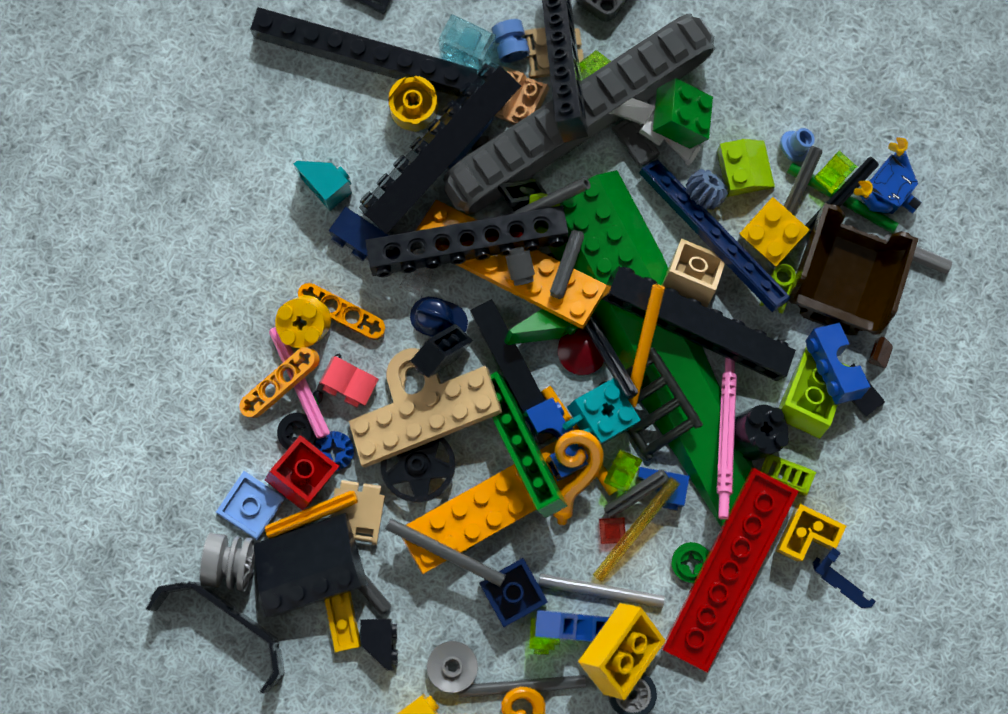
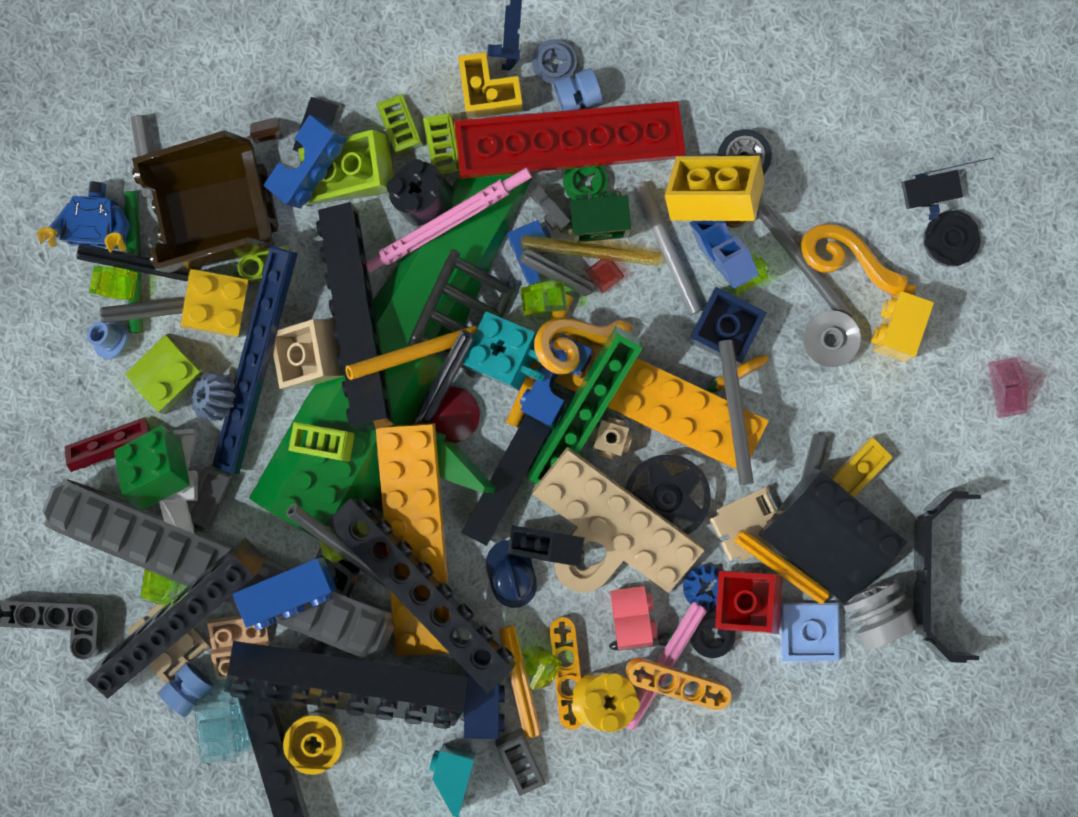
camera: 125 degrees left, 5 degrees up
(317, 240) = (509, 740): none -> dark grey slope
(357, 273) = (520, 683): none -> light orange axle
(358, 294) = (540, 666): none -> clear neon green panel
(377, 640) = (855, 424): black slope -> none
(473, 584) = (743, 370): none -> light orange piece
(492, 461) = (608, 450): none -> tan brick
(520, 266) = (414, 522): dark grey brick -> none
(528, 139) = (285, 594): none -> blue brick
(567, 264) = (381, 479): dark grey axle -> none
(614, 254) = (344, 448): none -> lime slope
(656, 551) = (600, 217): none -> dark green brick
(679, 520) = (554, 216): none -> dark grey plate
(722, 92) = (102, 446): none -> dark red plate
(763, 601) = (587, 87): none -> medium blue wheel
(803, 447) = (409, 144): none -> lime slope
(808, 595) = (543, 54): none -> sand blue gear

